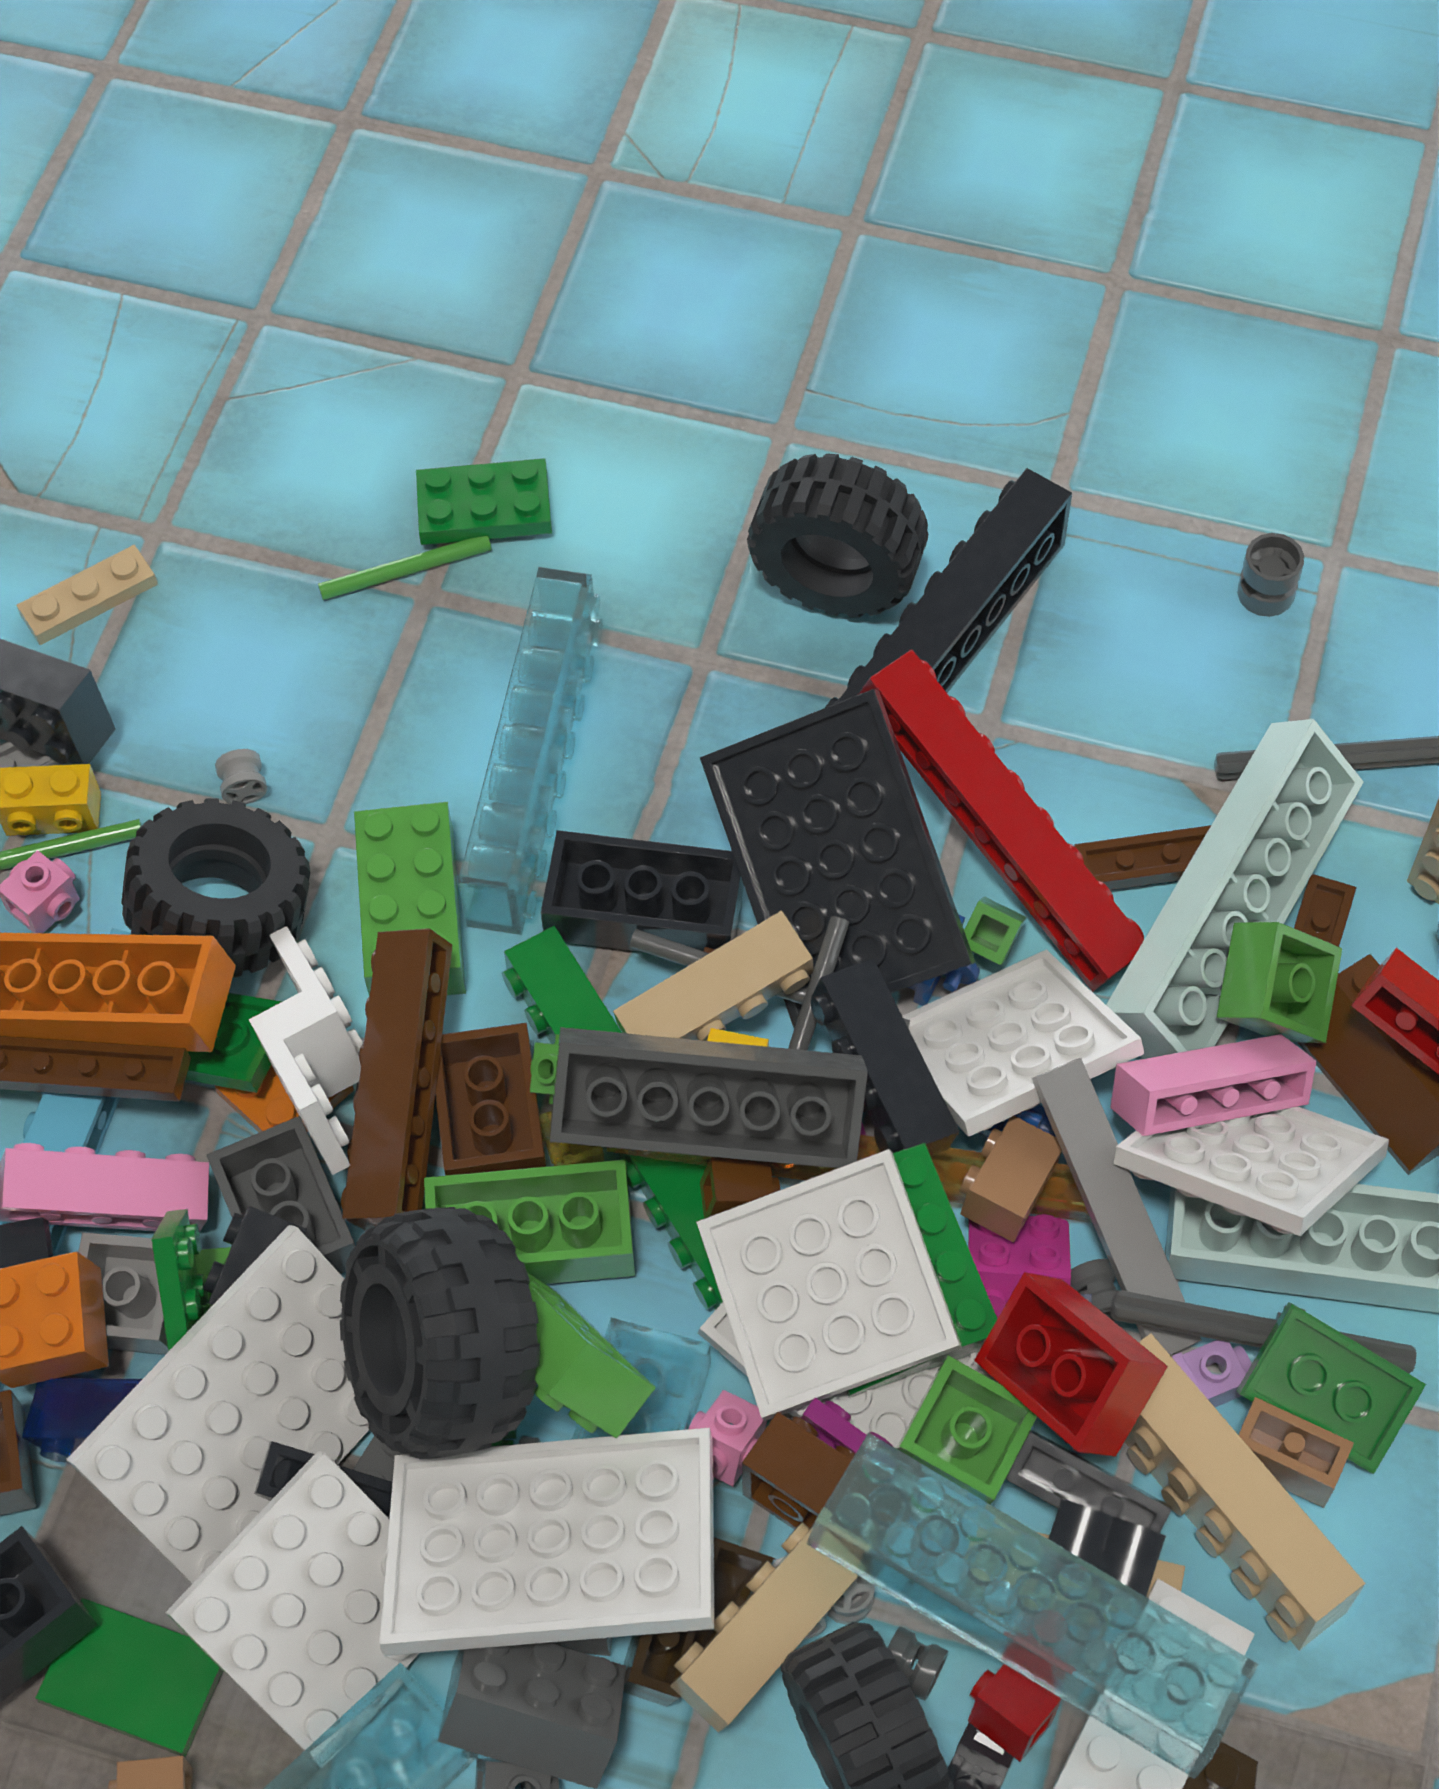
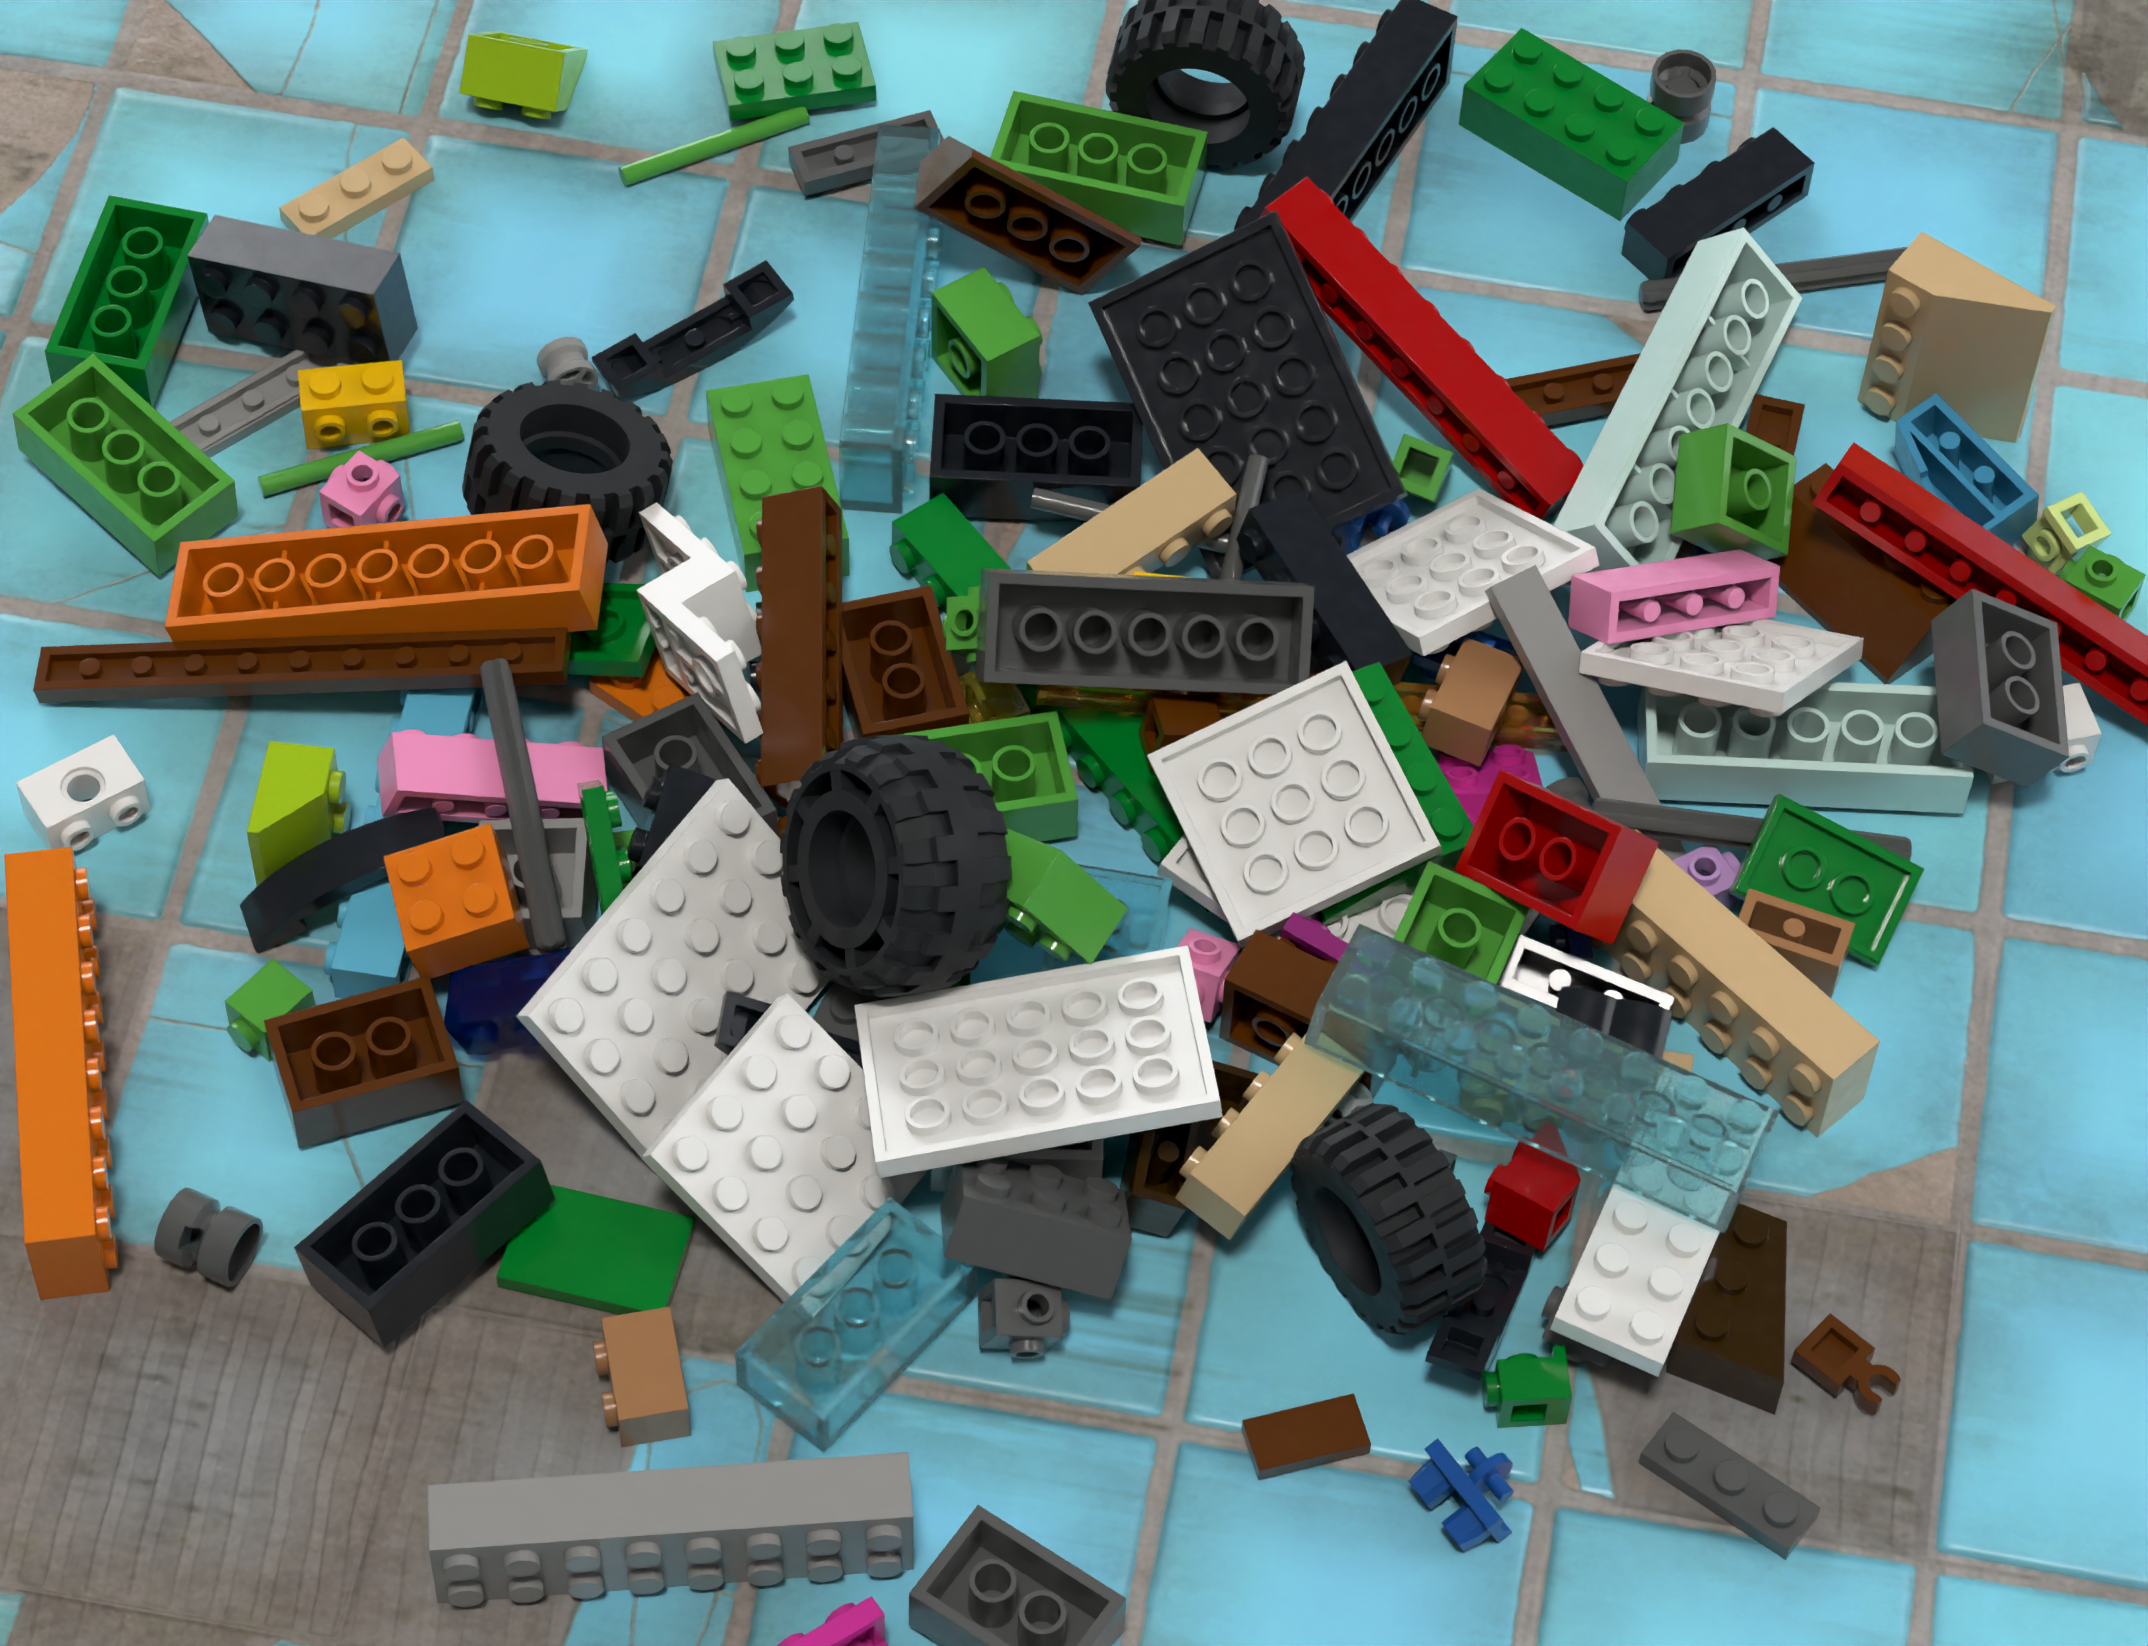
camera: 10 degrees left, 5 degrees down
(119, 1228) = (523, 806): none -> dark grey axle
(244, 489) = (521, 72): none -> lime slope
(361, 755) = (699, 340): none -> black slope
(510, 587) = (845, 156): none -> dark grey plate
(612, 779) = (984, 338): none -> bright green brick
(655, 661) = (1019, 217): none -> reddish brown slope
(735, 613) = (1108, 162): none -> bright green brick
(1168, 595) = (1570, 124): none -> green brick
(1294, 683) = (1731, 194): none -> black brick

